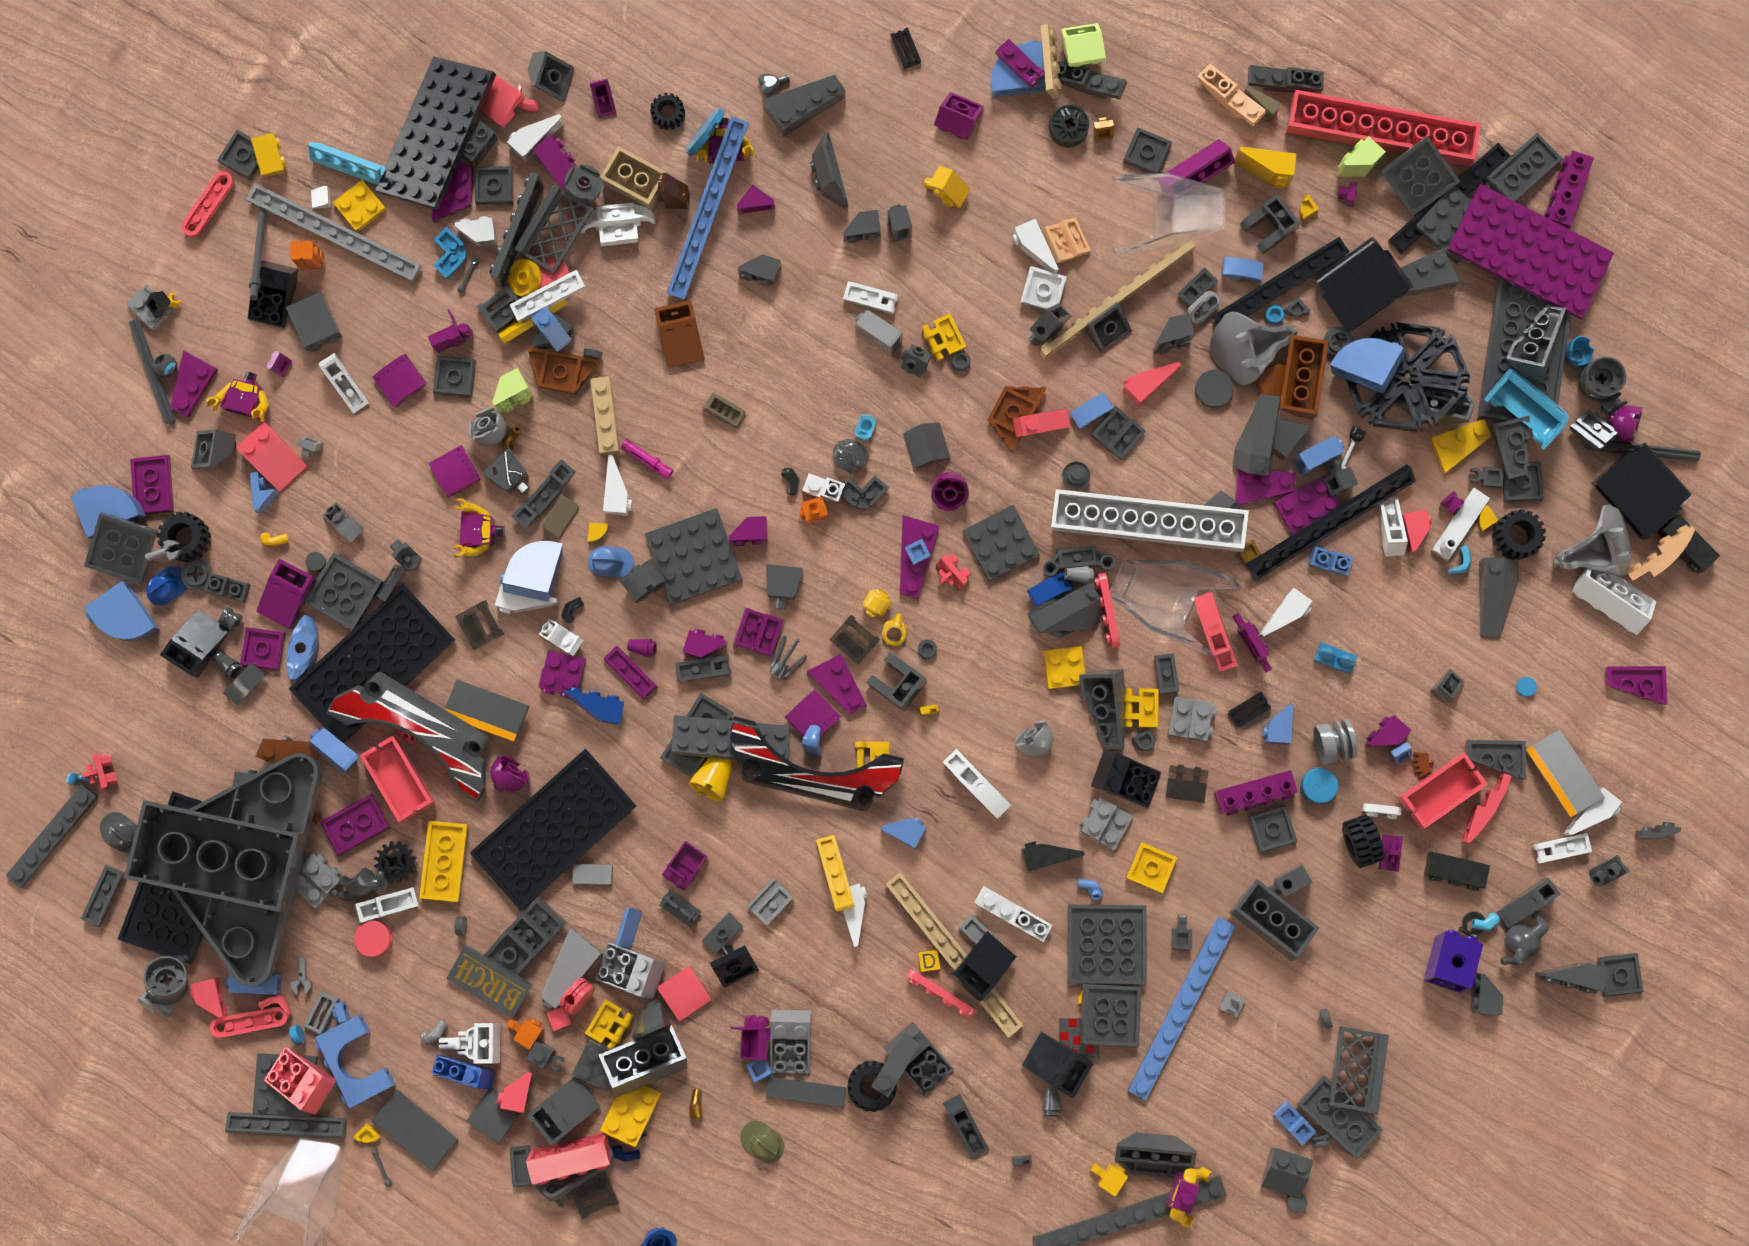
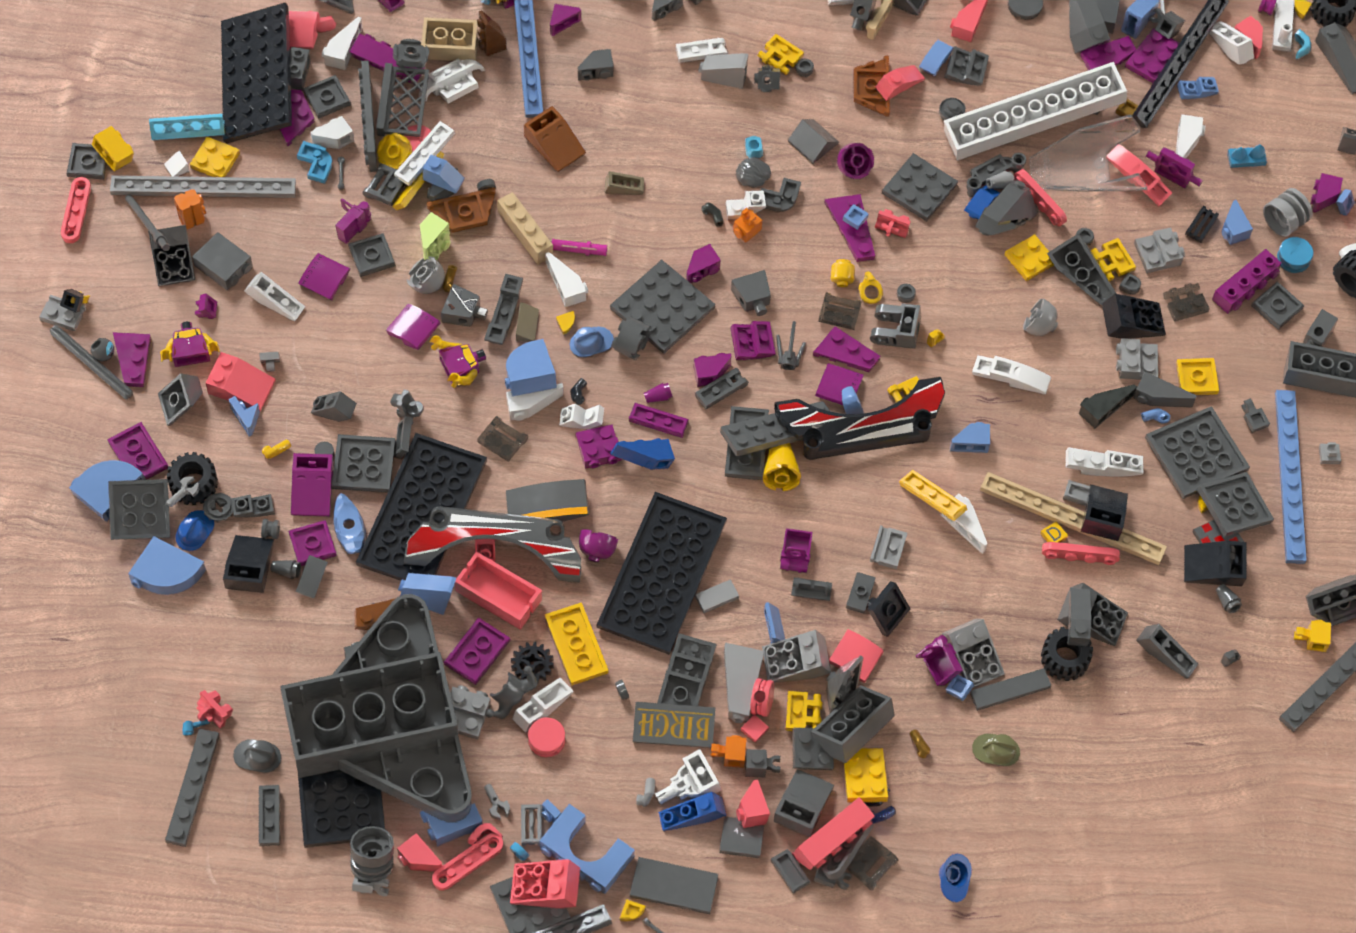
camera: 30 degrees left, 20 degrees down
(1103, 866) = (1158, 392): none -> dark grey slope
(1130, 669) = (1087, 235): none -> dark grey tile
(1166, 673) = (1117, 224): dark grey plate -> none

